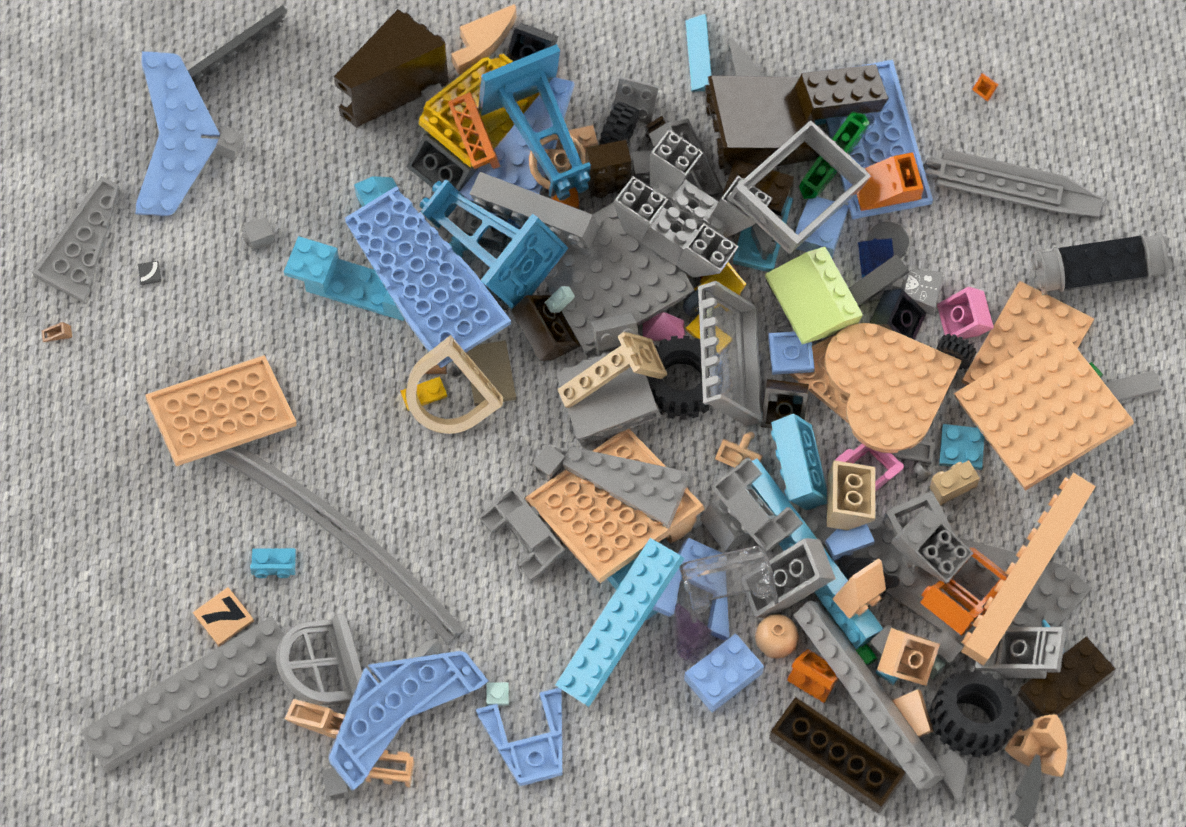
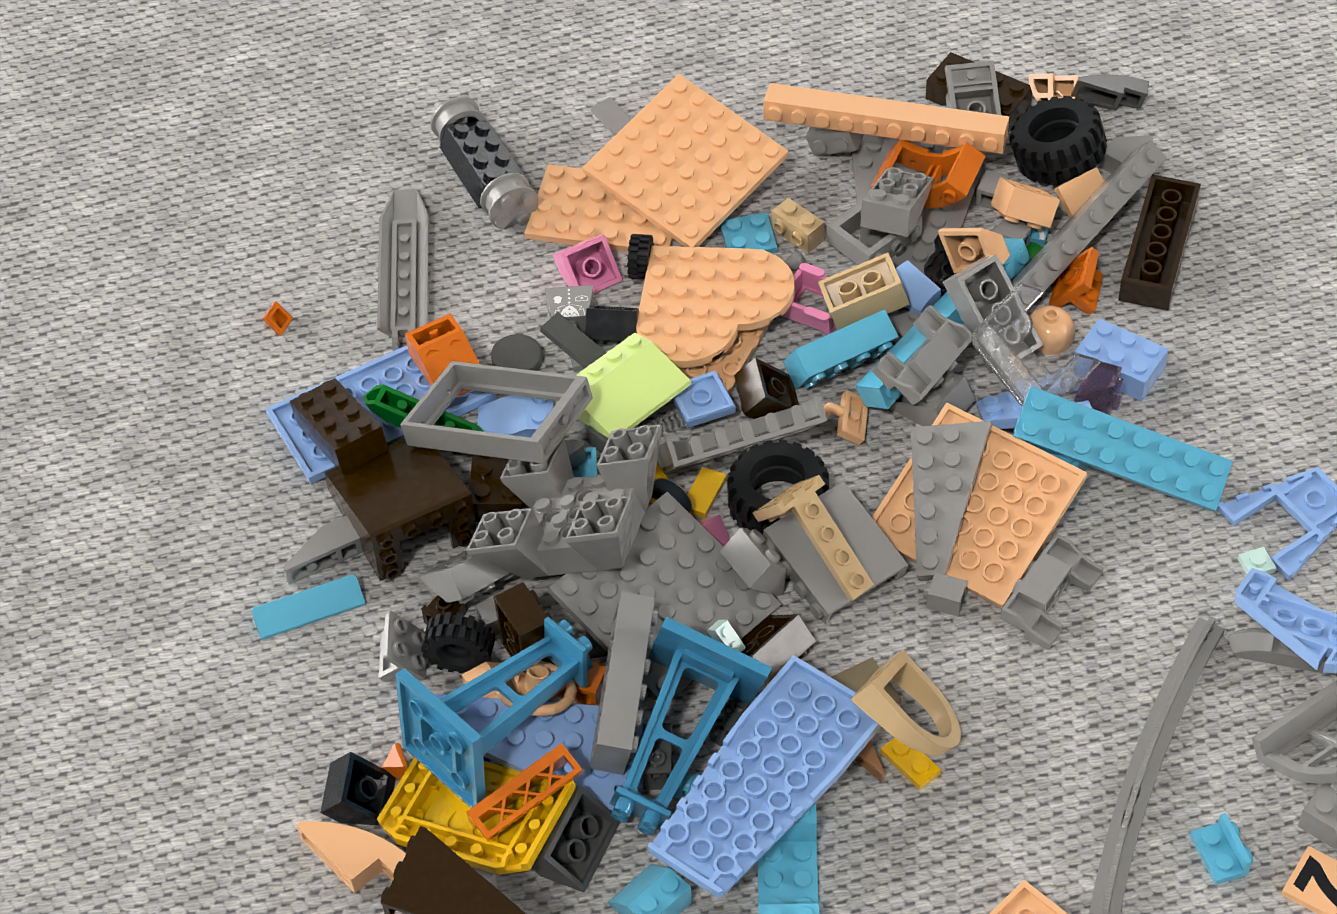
camera: 105 degrees left, 15 degrees down
(874, 254) = (543, 356): clear blue piece -> none

